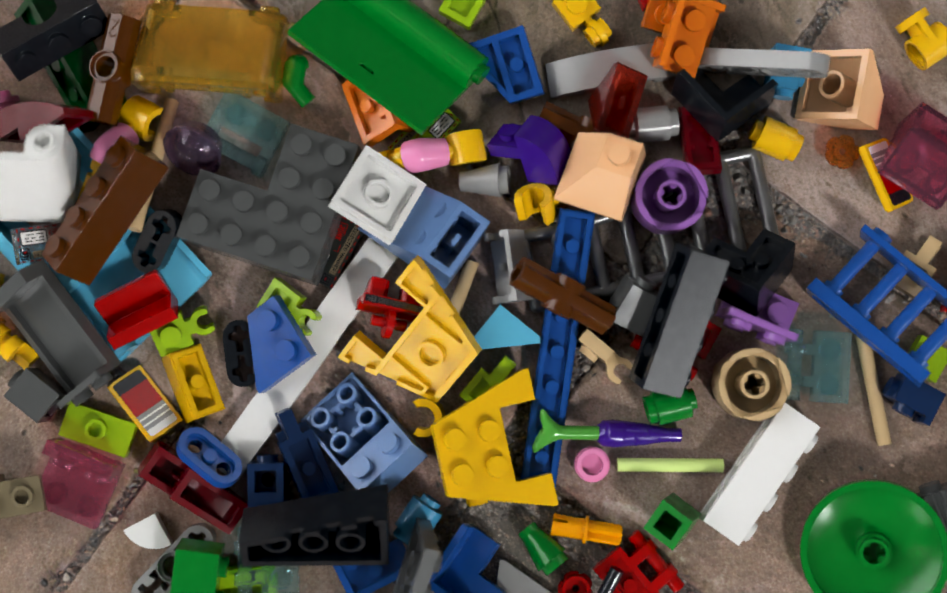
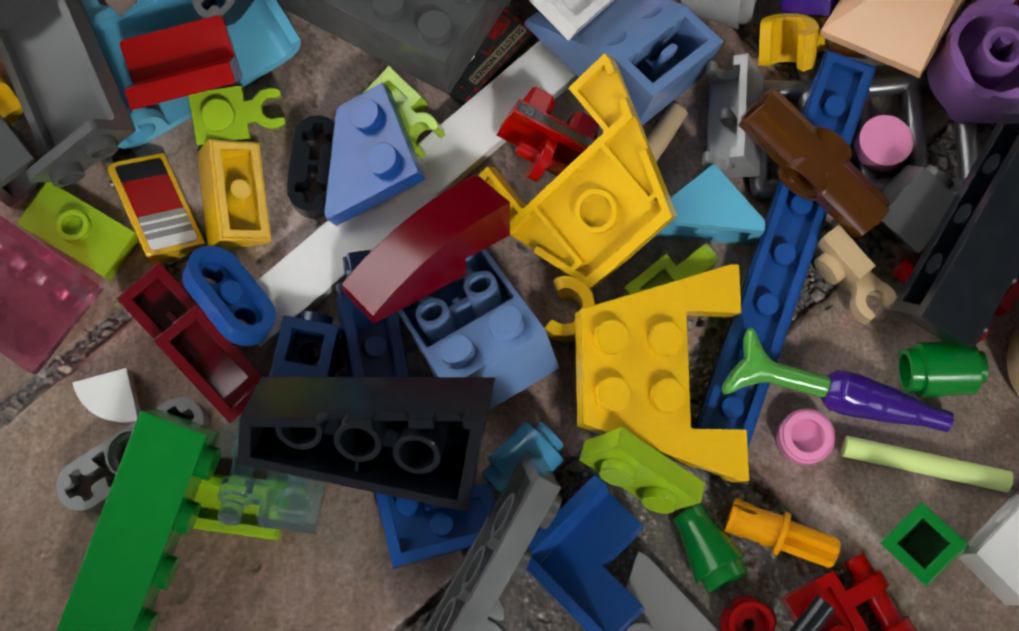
camera: 10 degrees right, 10 degrees down
(329, 403) = (429, 248): none -> dark red slope
(482, 512) = (642, 471): none -> lime plate
(609, 262) = (883, 143): none -> bright pink tile

